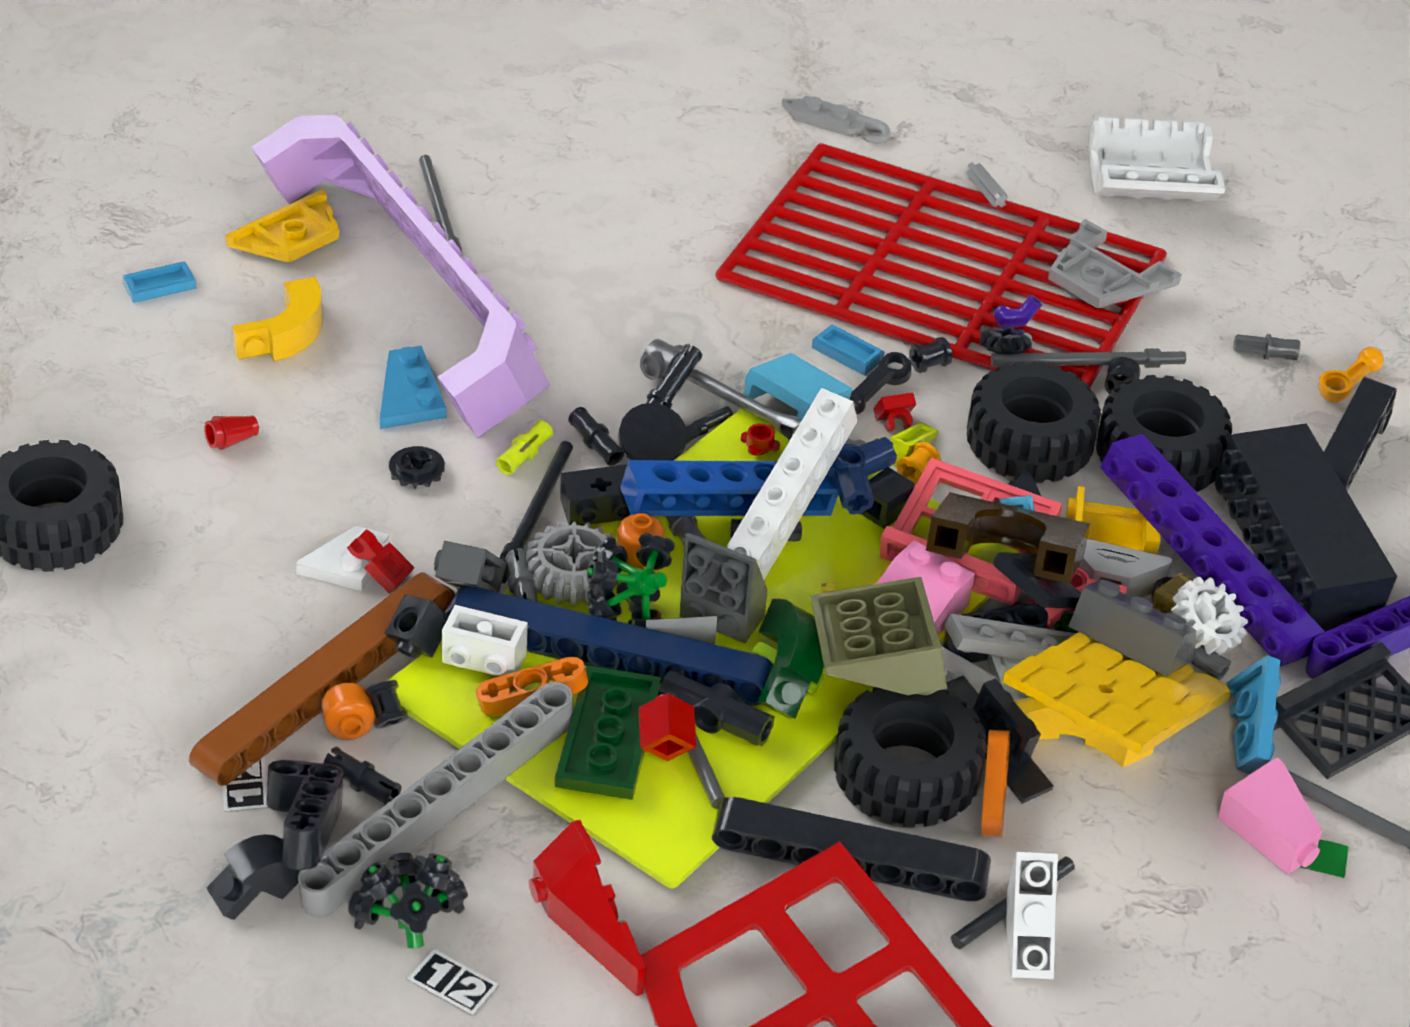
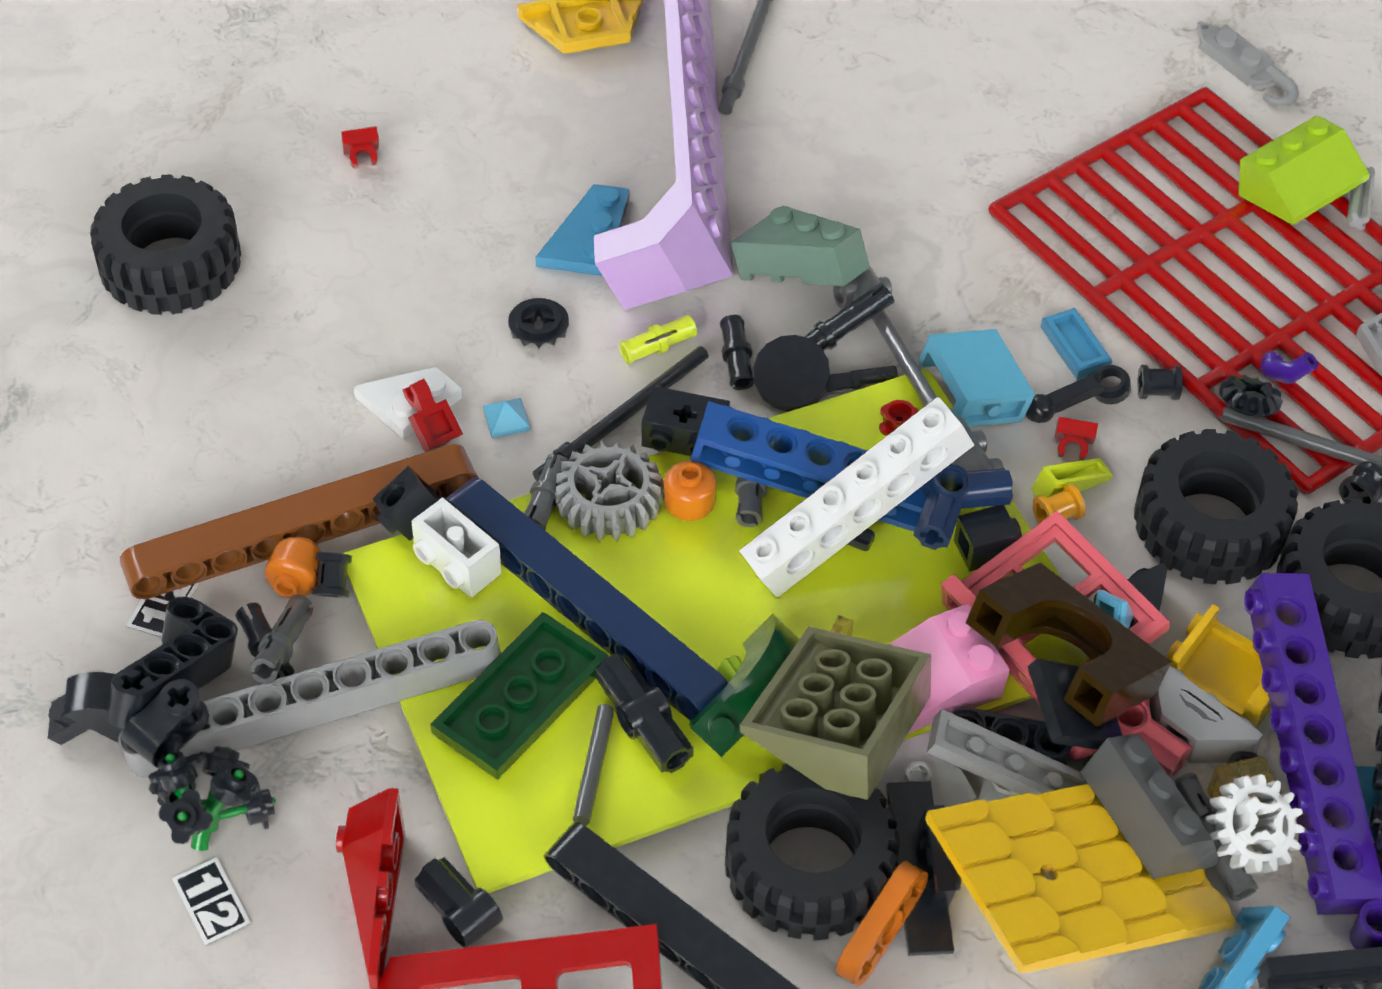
camera: 30 degrees right, 10 degrees up
(159, 282) = (429, 35): dark azure tile -> none
(163, 377) = (360, 141): none -> red tile
(229, 430) = (387, 220): red cone -> none
(288, 331) = (516, 128): yellow arch -> none
(343, 849) = (165, 725): none -> black piece
(394, 764) = (277, 647): none -> dark grey pin
(434, 542) = (506, 418): none -> medium azure slope
(469, 566) = (497, 460): dark grey brick -> none
(503, 685) = (448, 608): orange beam -> none
(603, 339) = (801, 246): none -> sand green wedge
(637, 588) = (647, 546): black plant -> none
(667, 727) = (572, 715): red brick -> none
(673, 902) = (463, 909): none -> black piece
(695, 628) = (668, 613): light grey sticker -> none
(722, 585) = (723, 585): dark grey slope -> none
(937, 176) = (1302, 170): none -> lime slope

